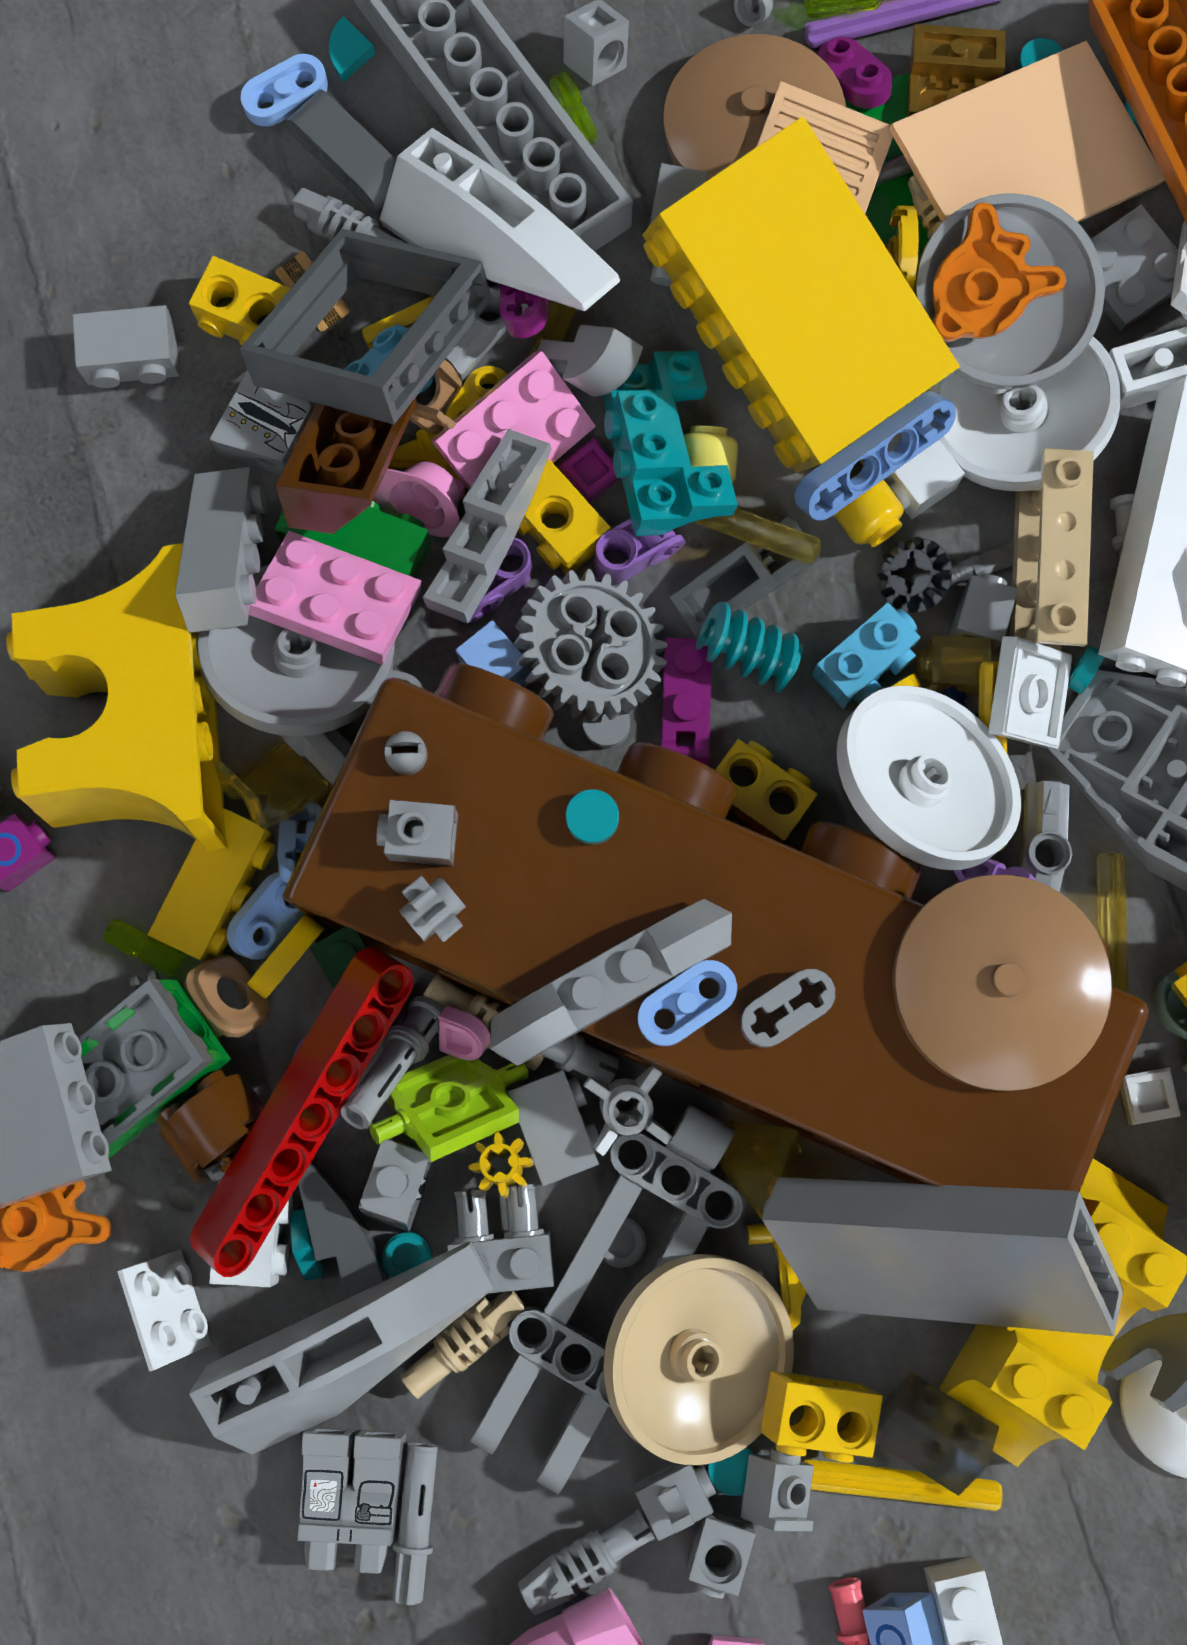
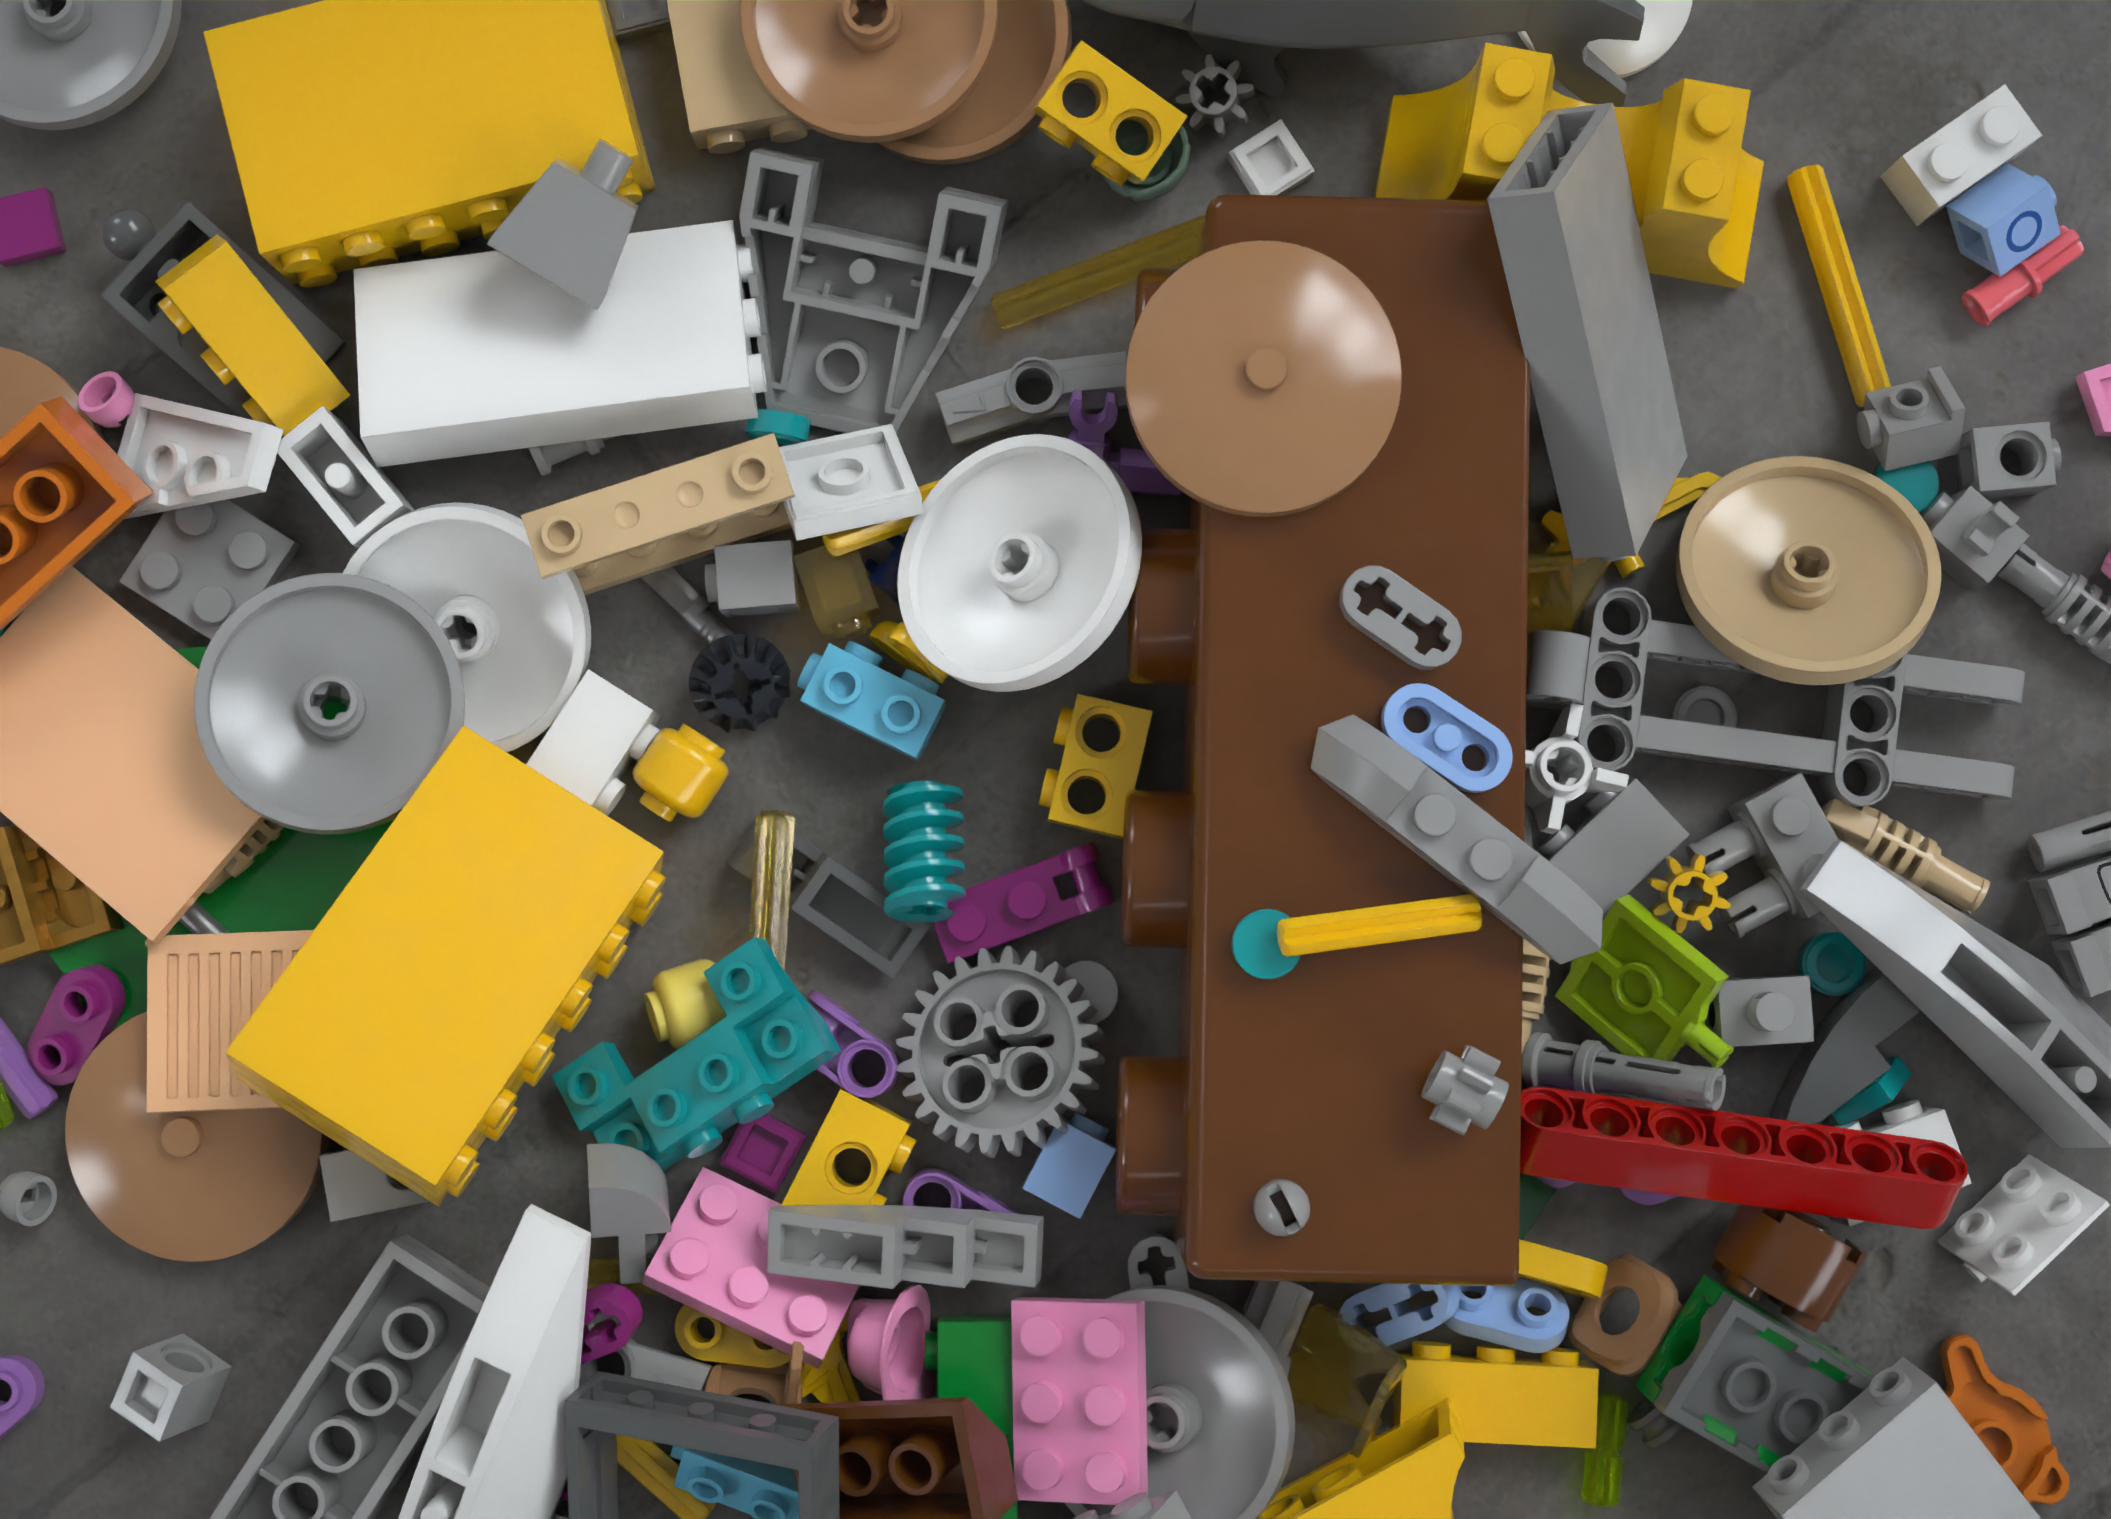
camera: 115 degrees left, 5 degrees up
(418, 832) = (1379, 1146): light grey brick -> none
(462, 1034) = (1550, 1007): bright pink tile -> none
(567, 94) = (265, 1386): clear neon green piece -> none
(573, 898) = (1379, 925): none -> yellow axle
(823, 1405) = (1793, 406): yellow brick -> none
(829, 485) = (678, 826): medium blue beam -> none
(904, 245) = (322, 860): yellow tile -> none
(935, 1434) = (1772, 268): clear smoke brick -> none
(986, 280) = (335, 736): orange tile -> none

